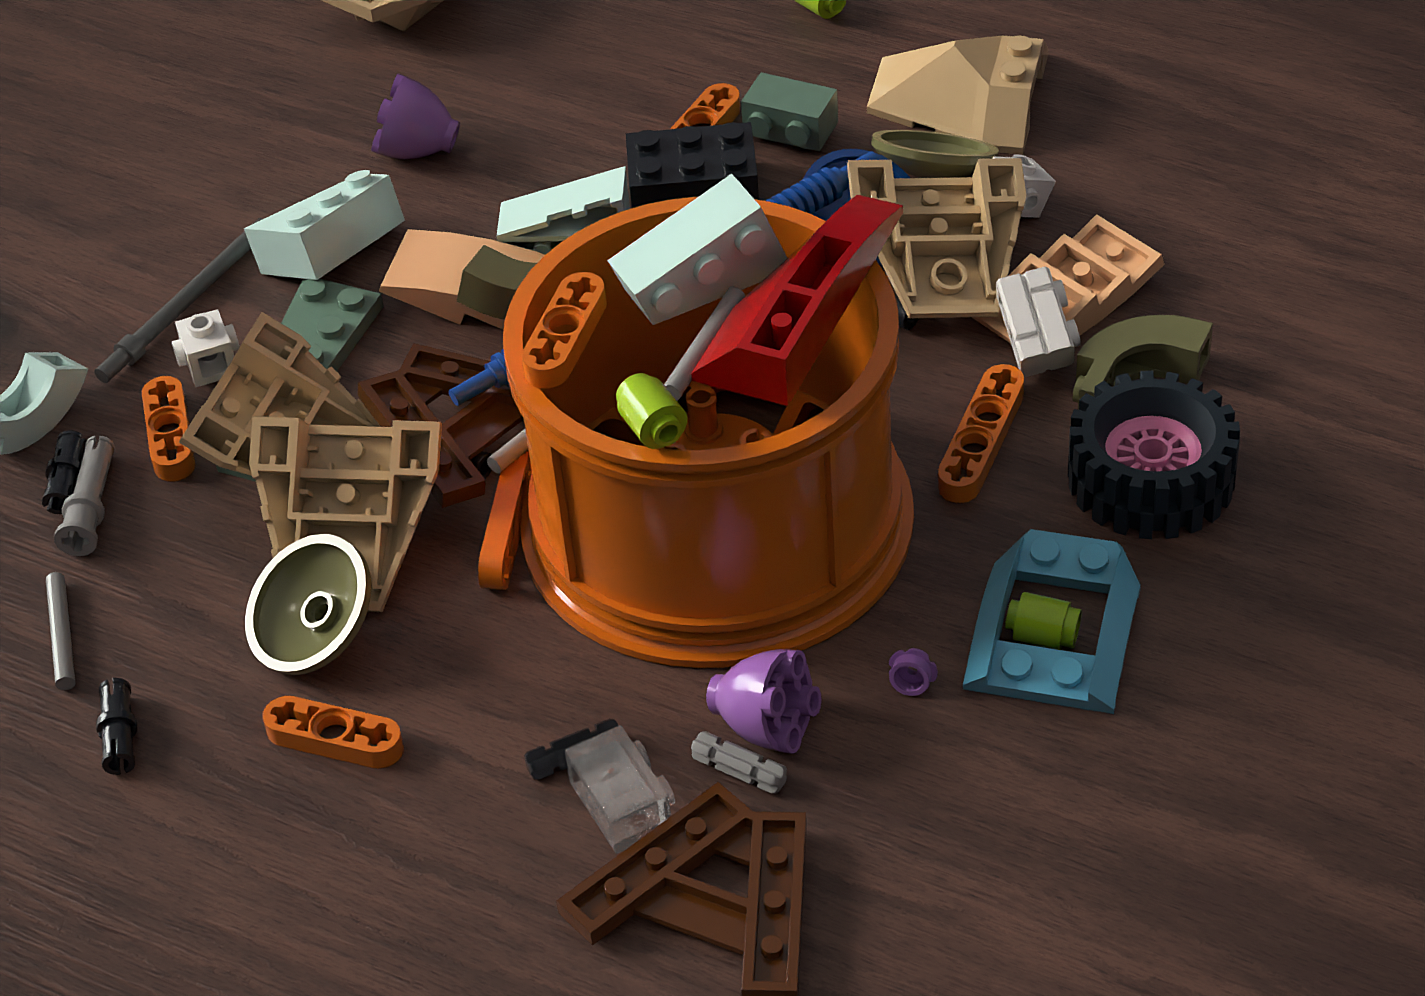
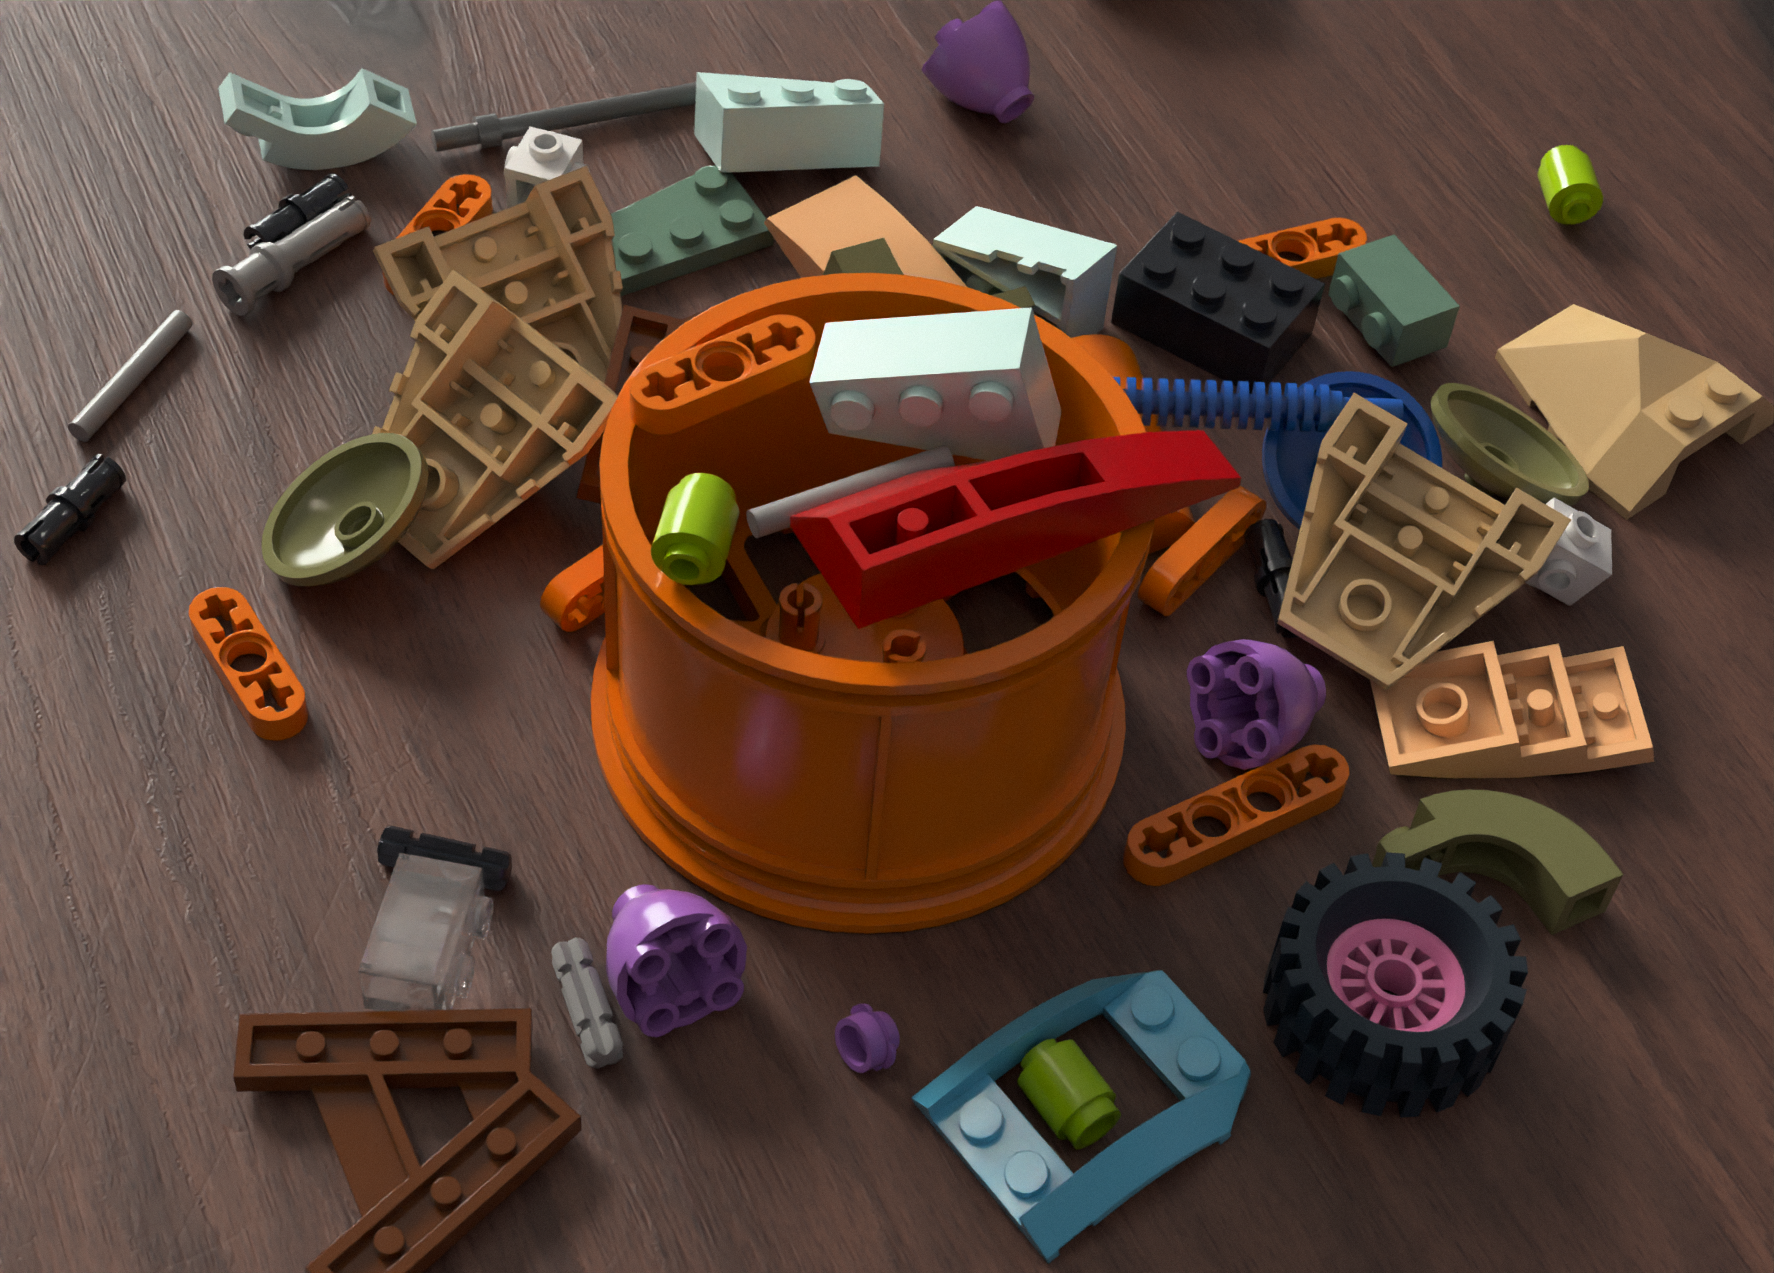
camera: 30 degrees right, 5 degrees up
(939, 363) = (1251, 702): none -> medium lavender piece
(1036, 321) = (1413, 726): white brick -> none

